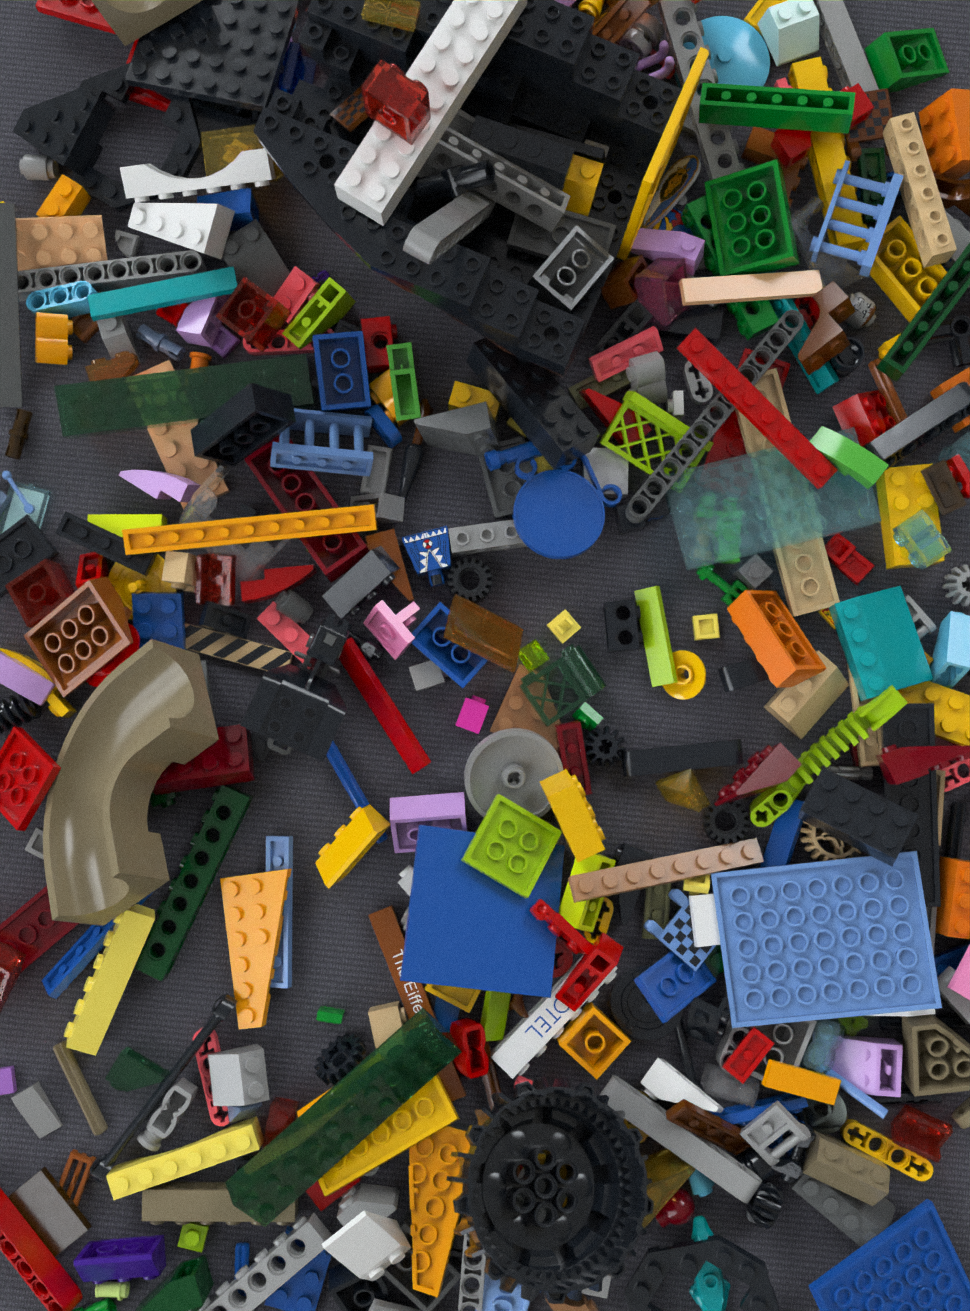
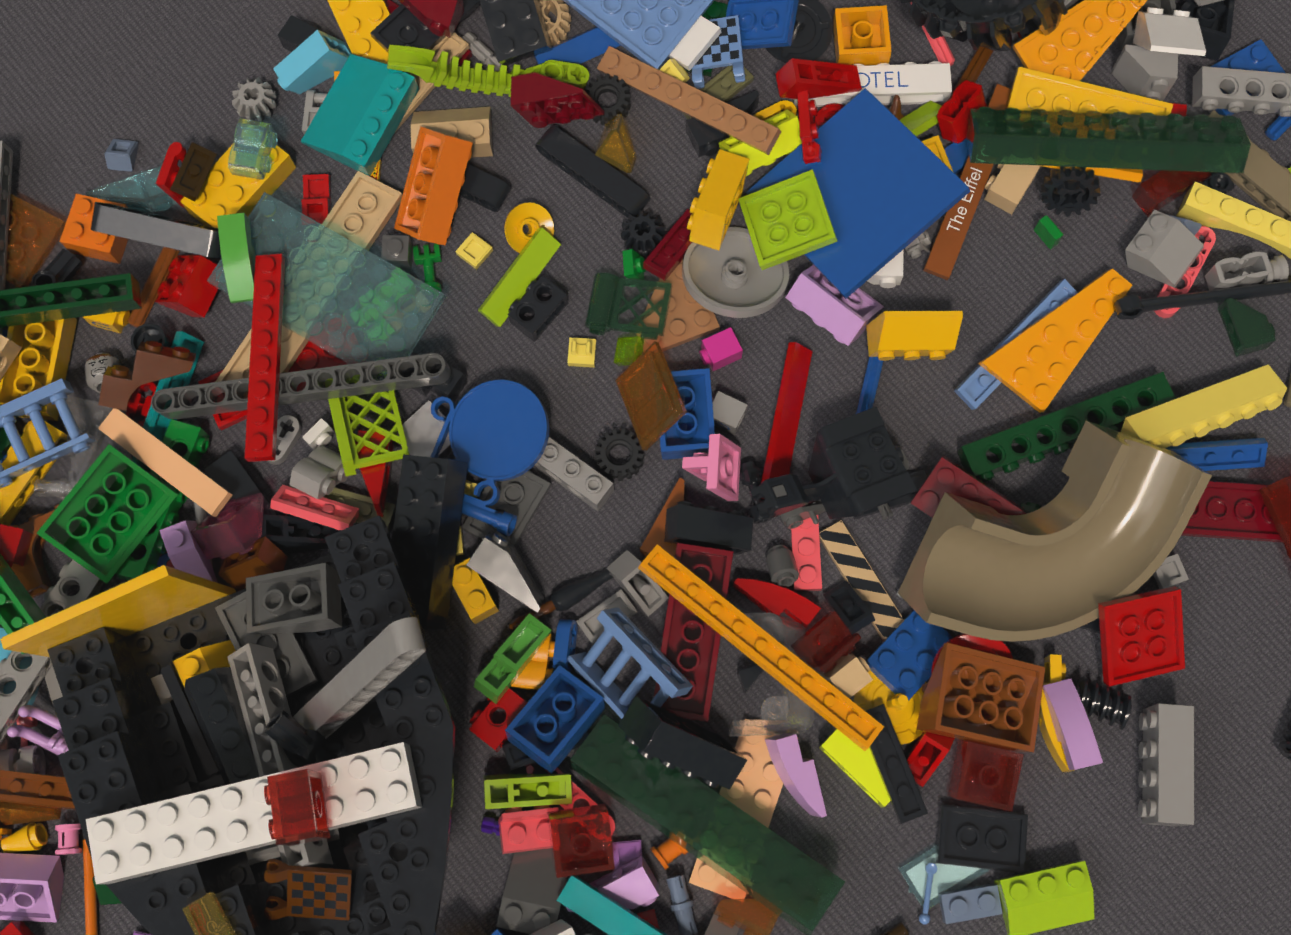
camera: 130 degrees left, 10 degrees down
(430, 553) = (630, 505): torso -> none

